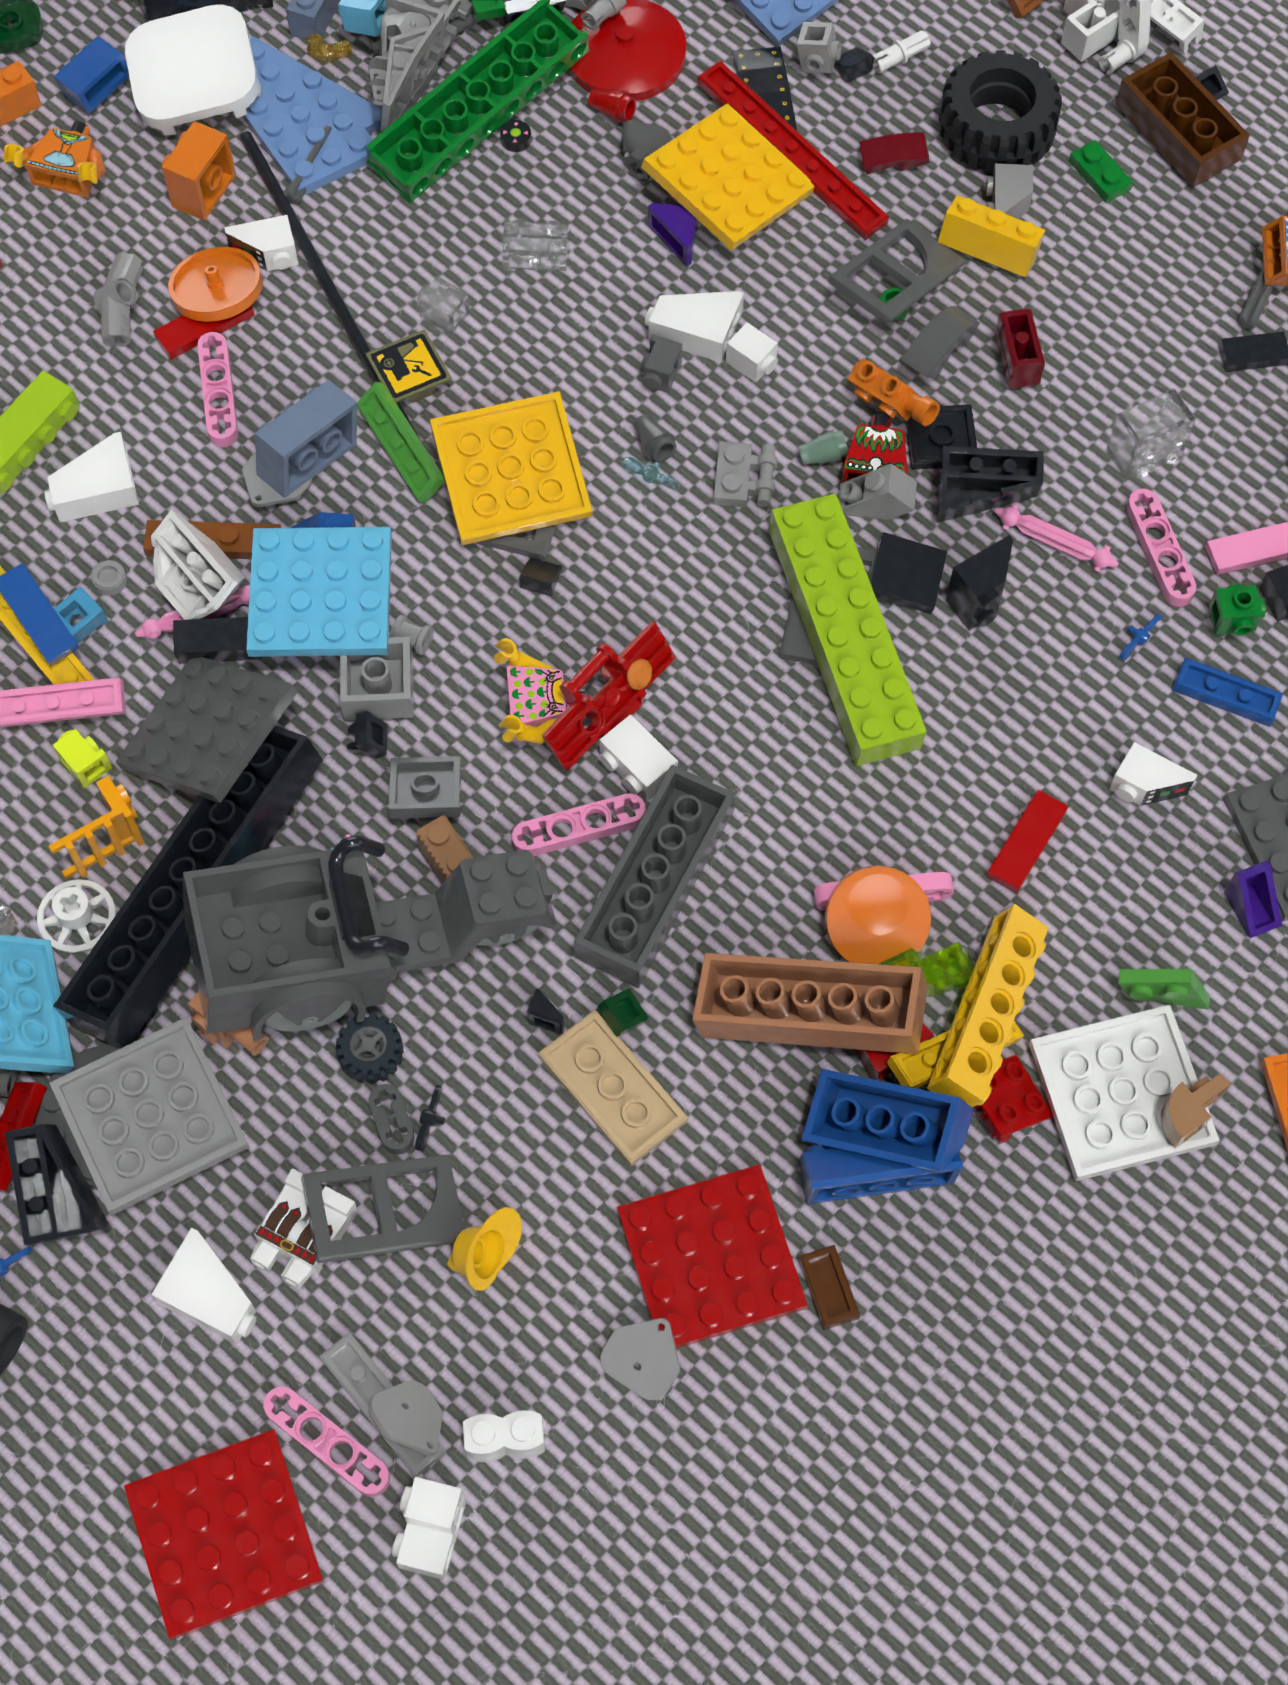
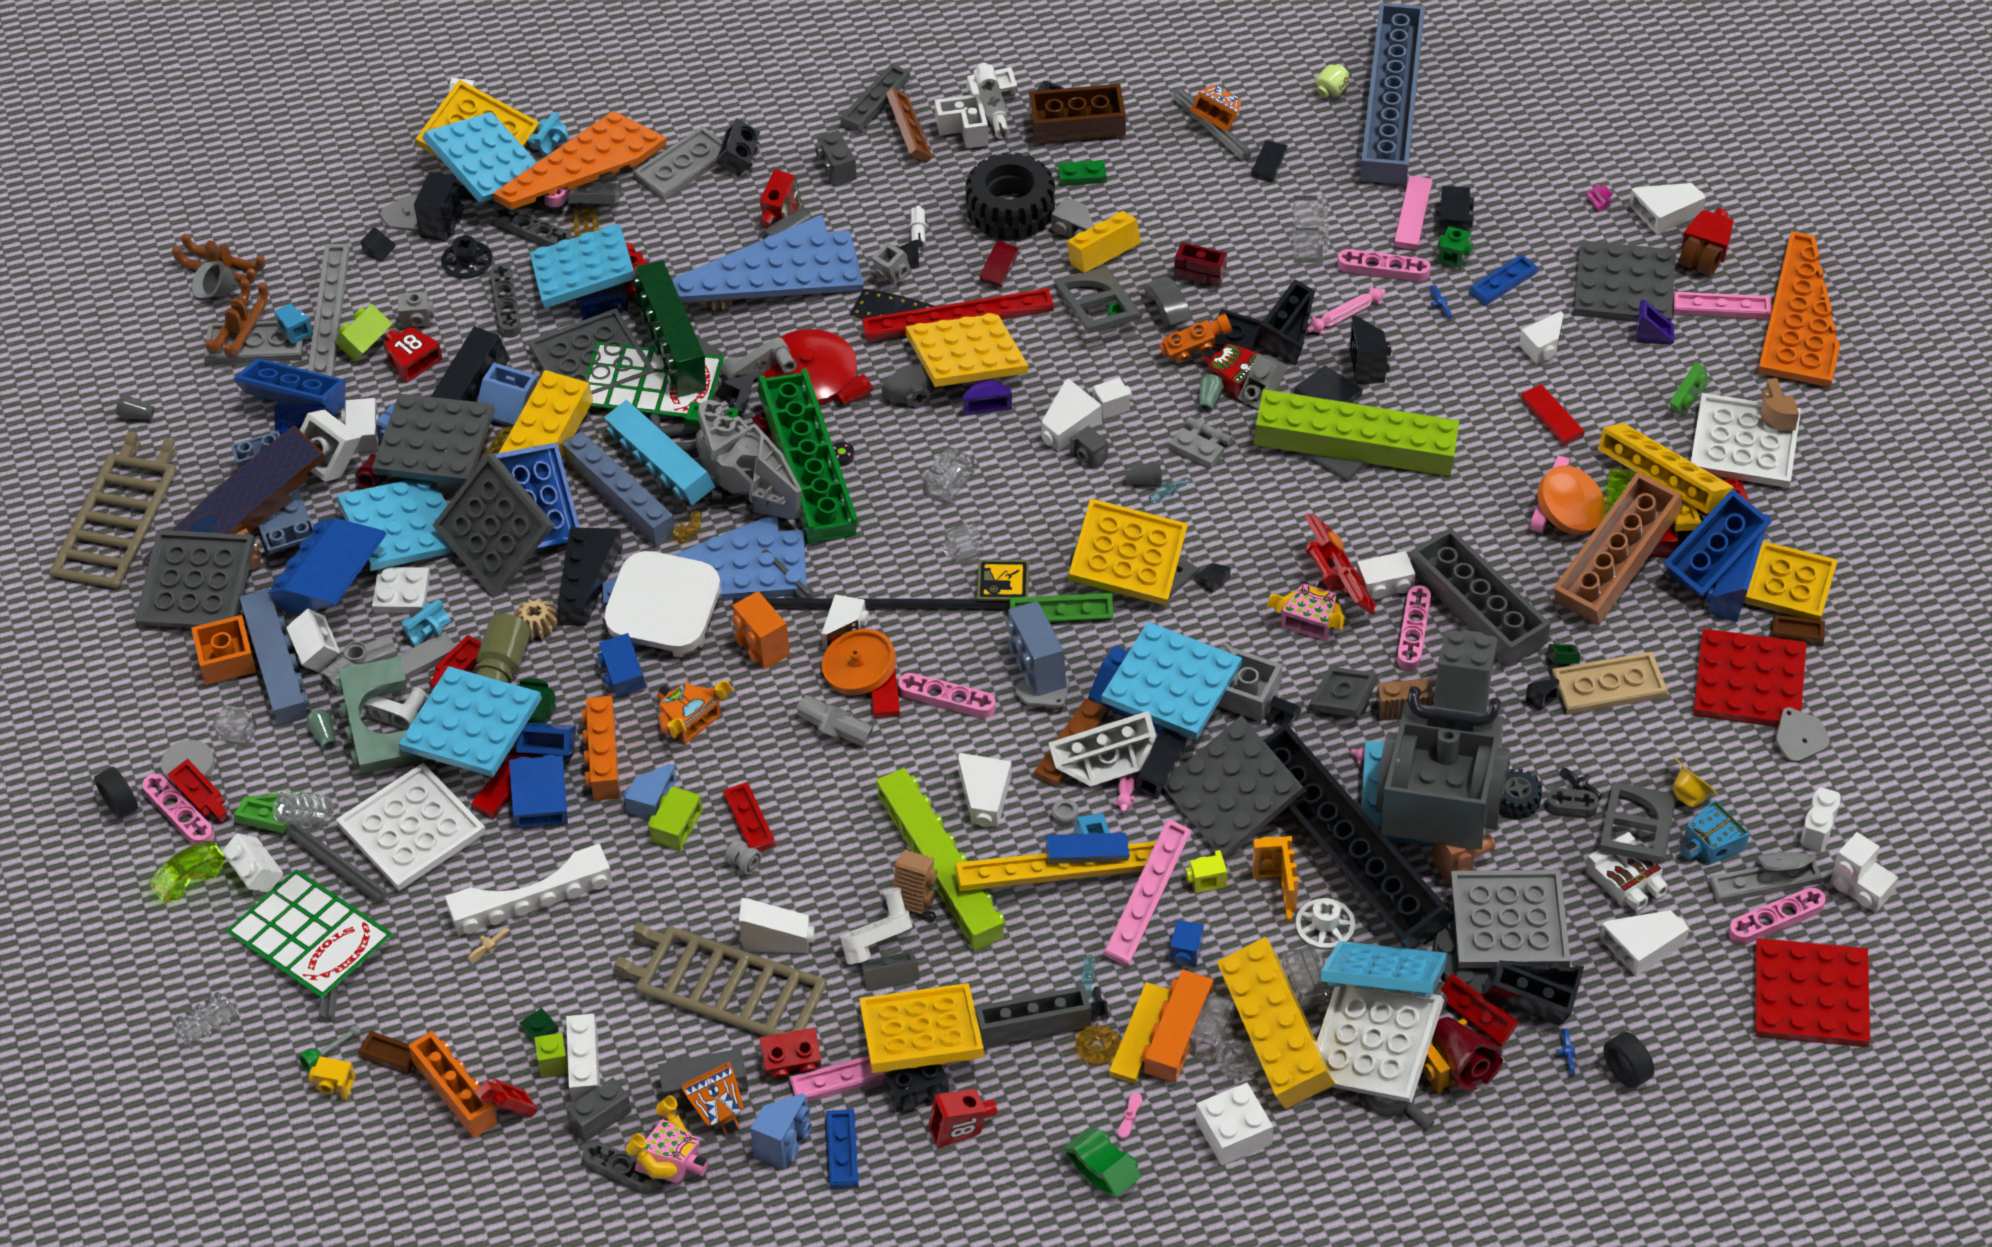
camera: 60 degrees left, 15 degrees down
(414, 1309) = (1714, 835): none -> dark azure torso
(904, 1245) = (1791, 581): none -> yellow plate

